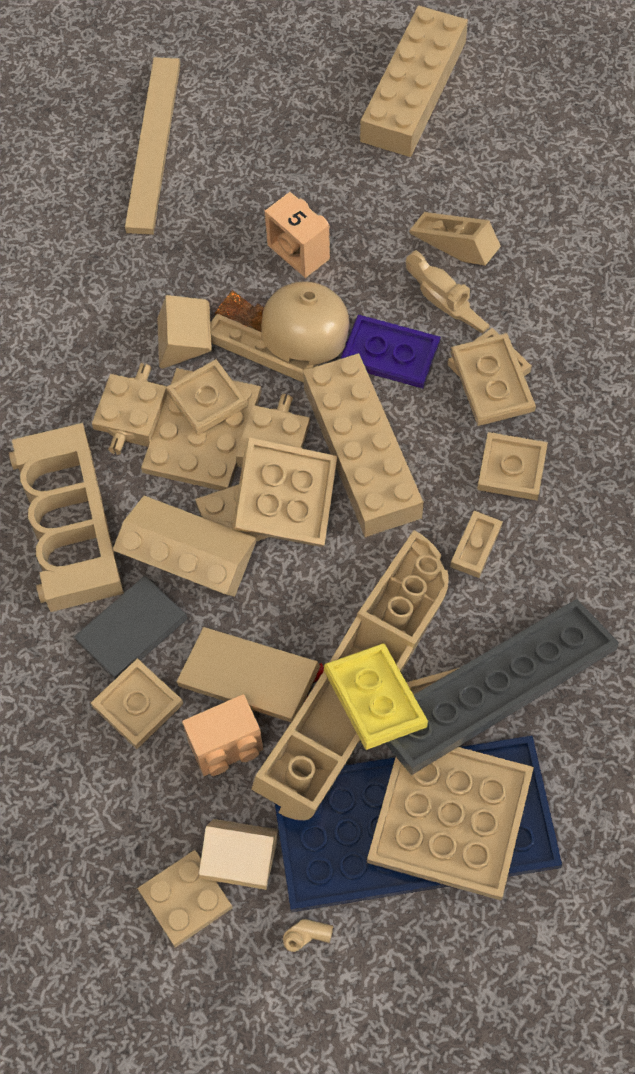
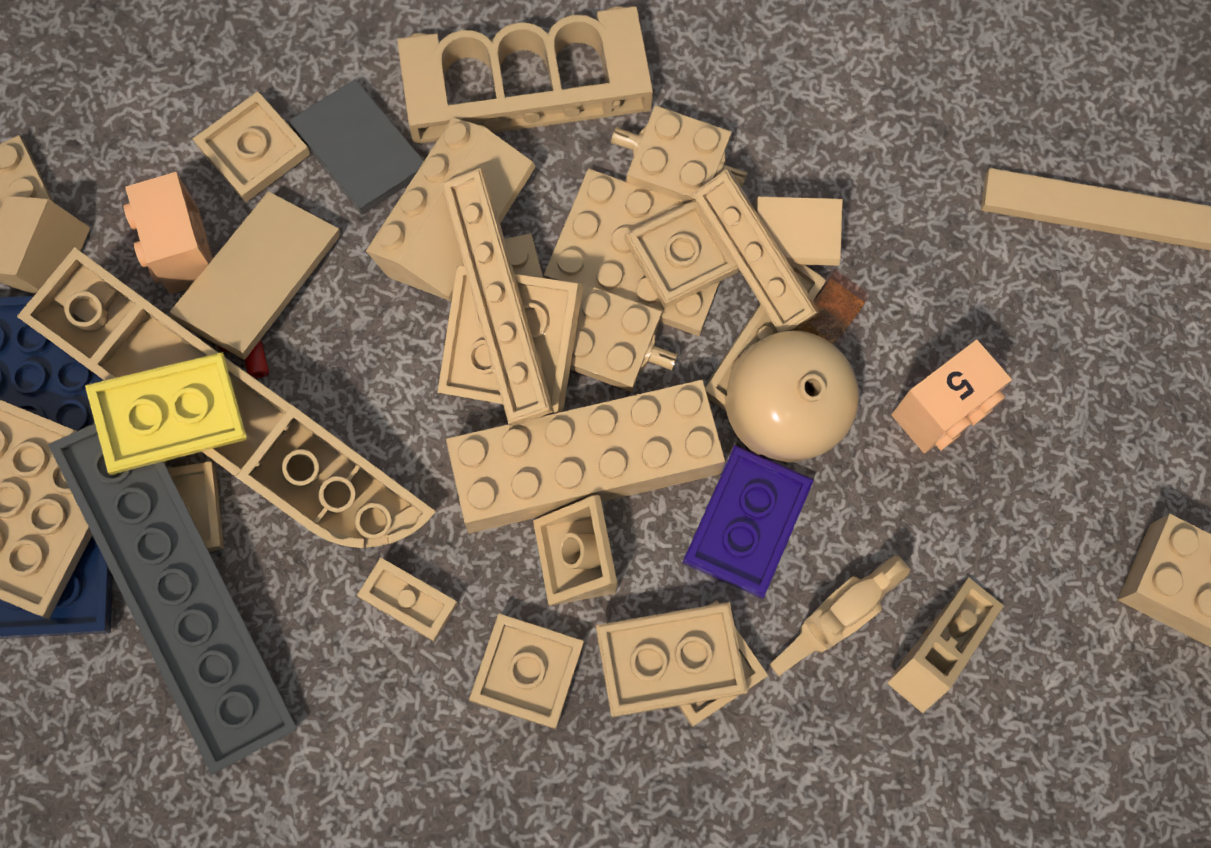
camera: 90 degrees right, 10 degrees up
(206, 346) = (755, 252): none -> tan tile
(258, 493) = (497, 298): none -> tan tile
(429, 440) = (575, 552): none -> tan slope

